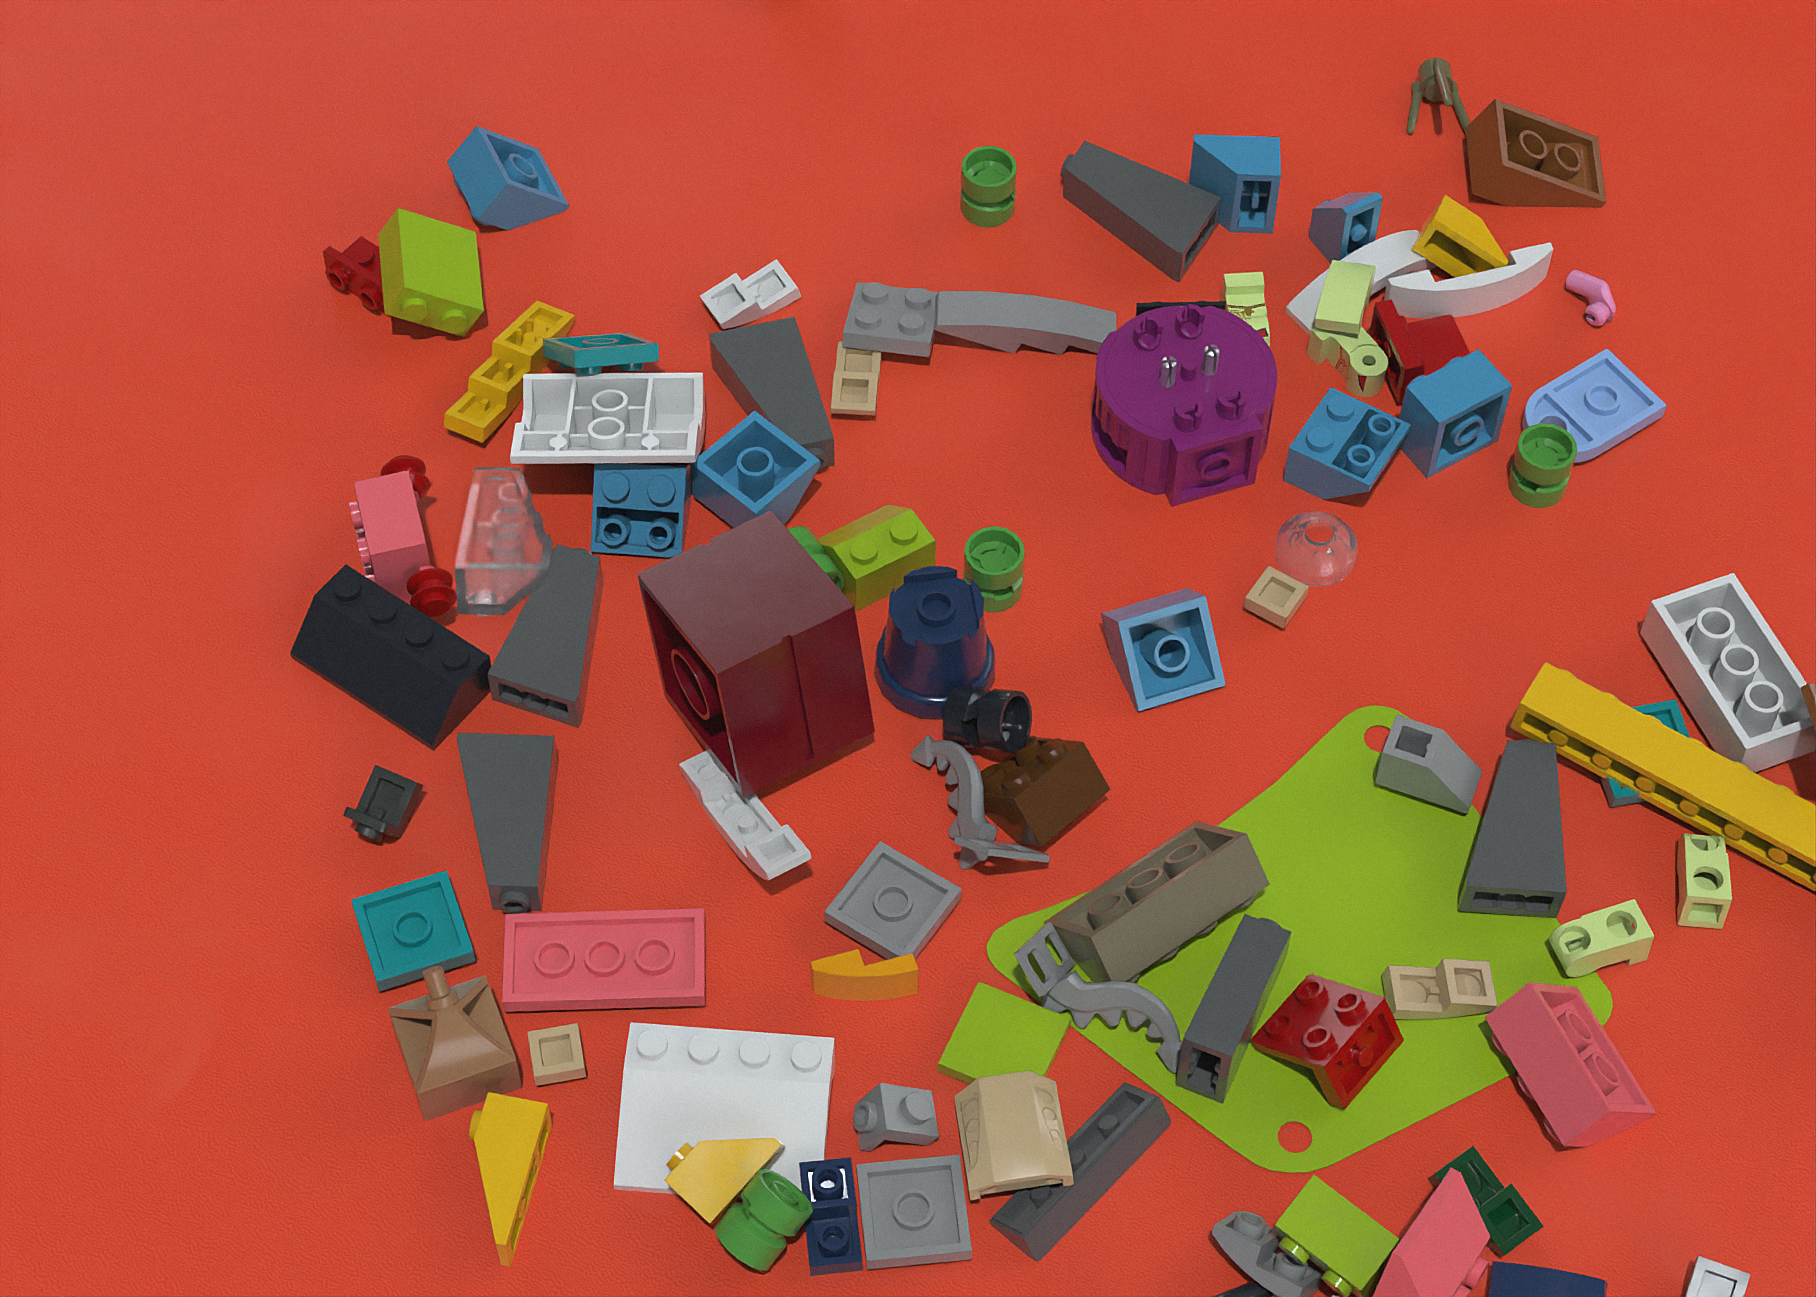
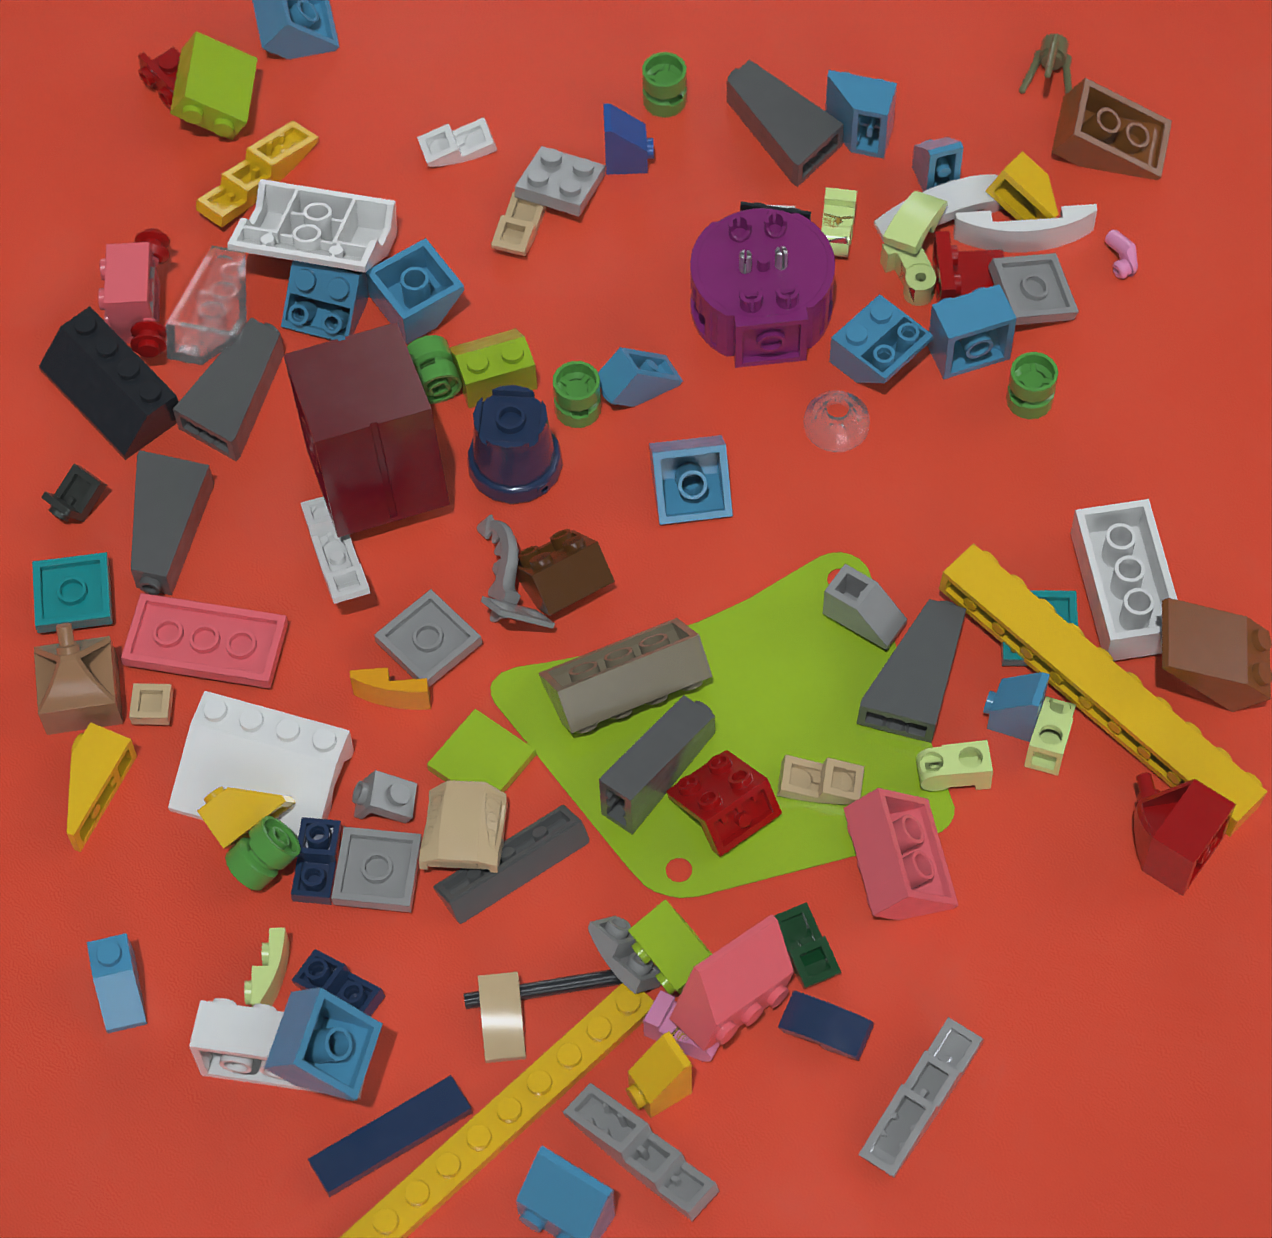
camera: 15 degrees right, 5 degrees up
(592, 352) = (324, 169): teal plate -> none
(772, 375) = (454, 219): dark grey slope -> none
(961, 257) = (625, 143): none -> blue slope
(987, 718) = (536, 510): black wheel -> none
(1019, 319) = (654, 196): light grey slope -> none
(1060, 537) = (636, 377): none -> dark azure slope
(1088, 998) = (549, 737): light grey piece -> none
(1276, 597) = (791, 454): tan plate -> none
(1510, 346) = (1034, 288): none -> light grey plate
(1596, 404) = (1092, 344): light blue plate -> none
(1655, 849) = (1017, 705): none -> dark azure slope

